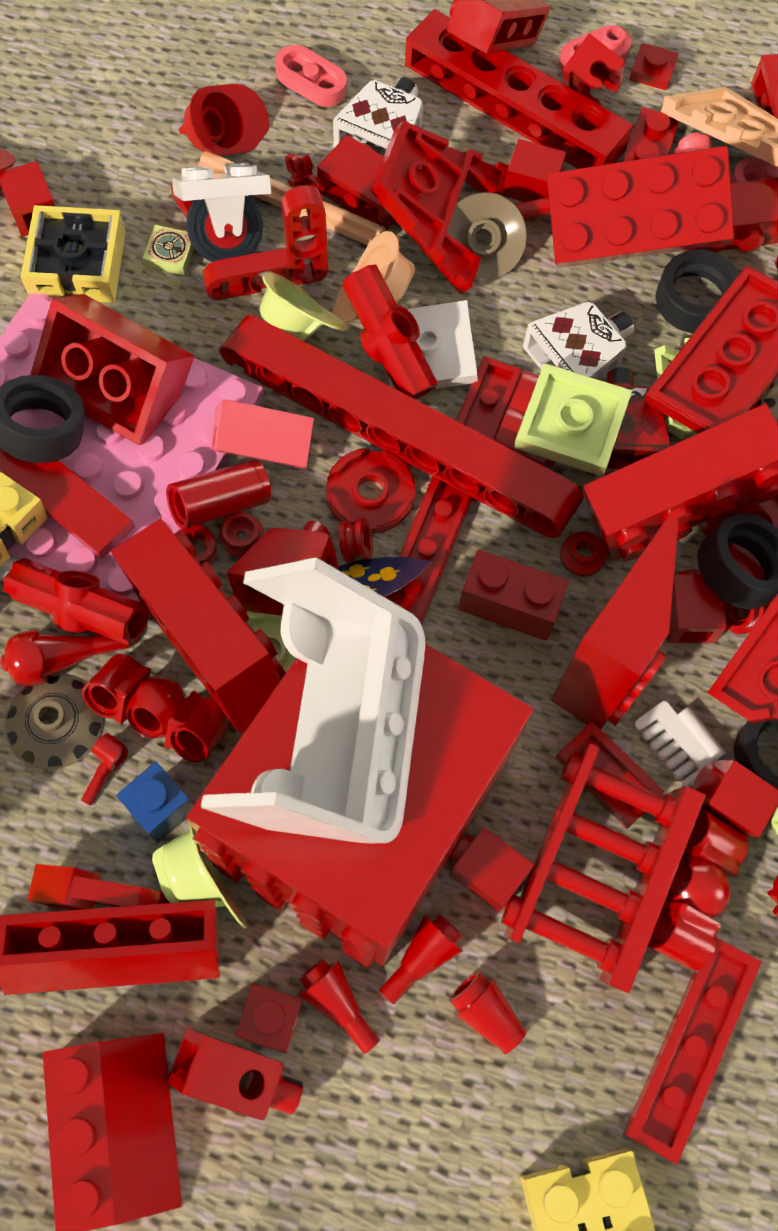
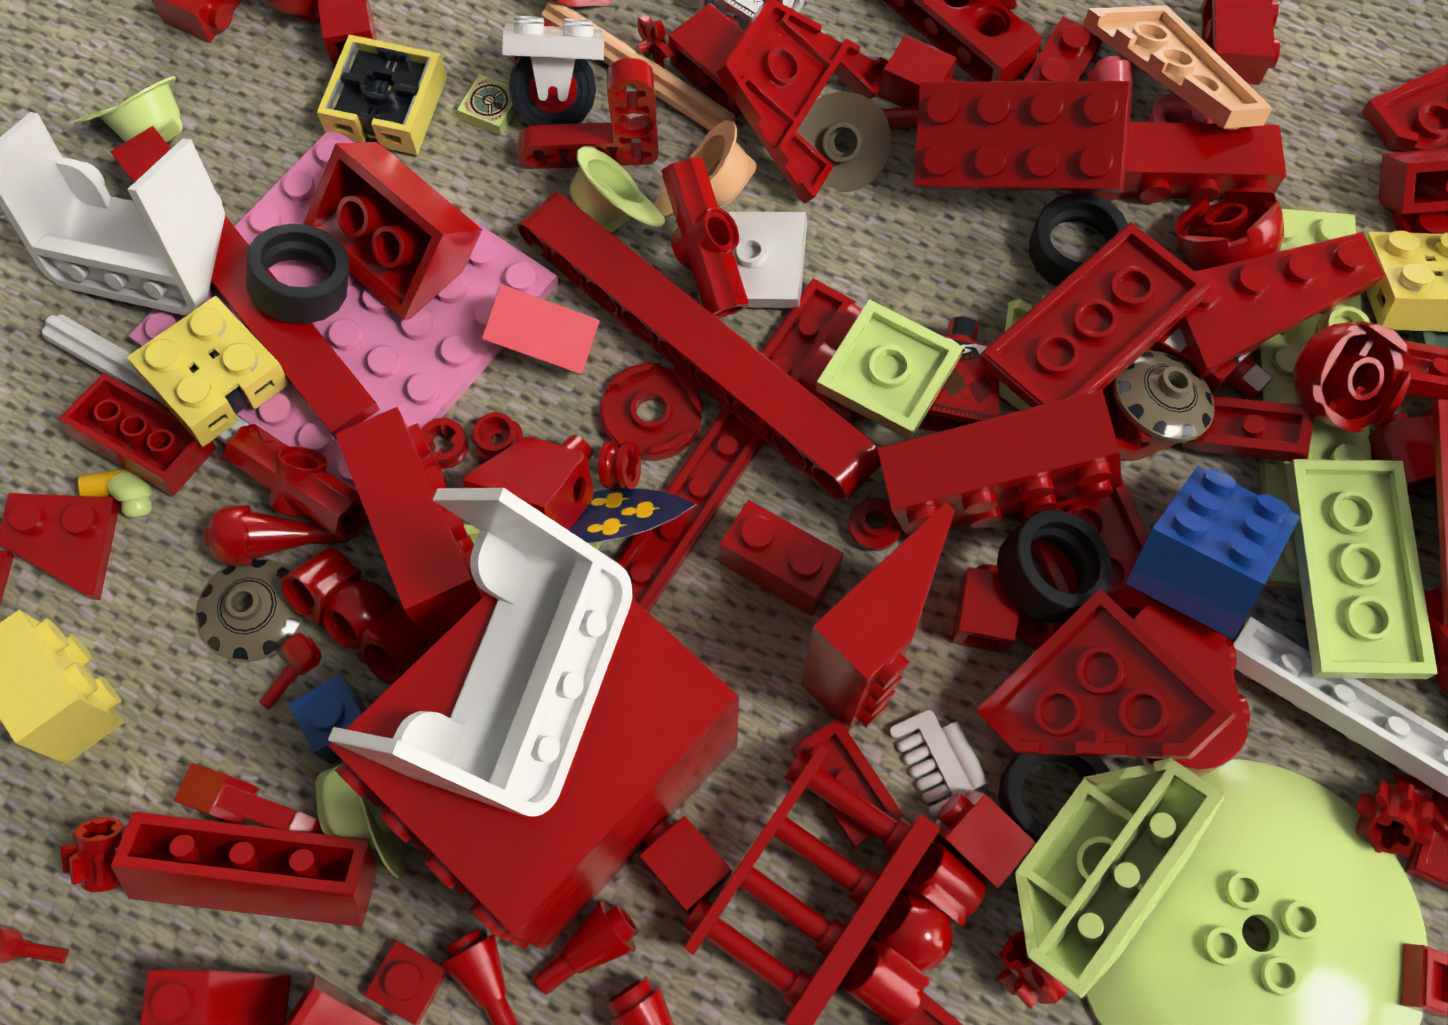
camera: 15 degrees right, 0 degrees up
(218, 493) = (478, 388): red pin -> none
(580, 340) = (925, 280): white torso -> none

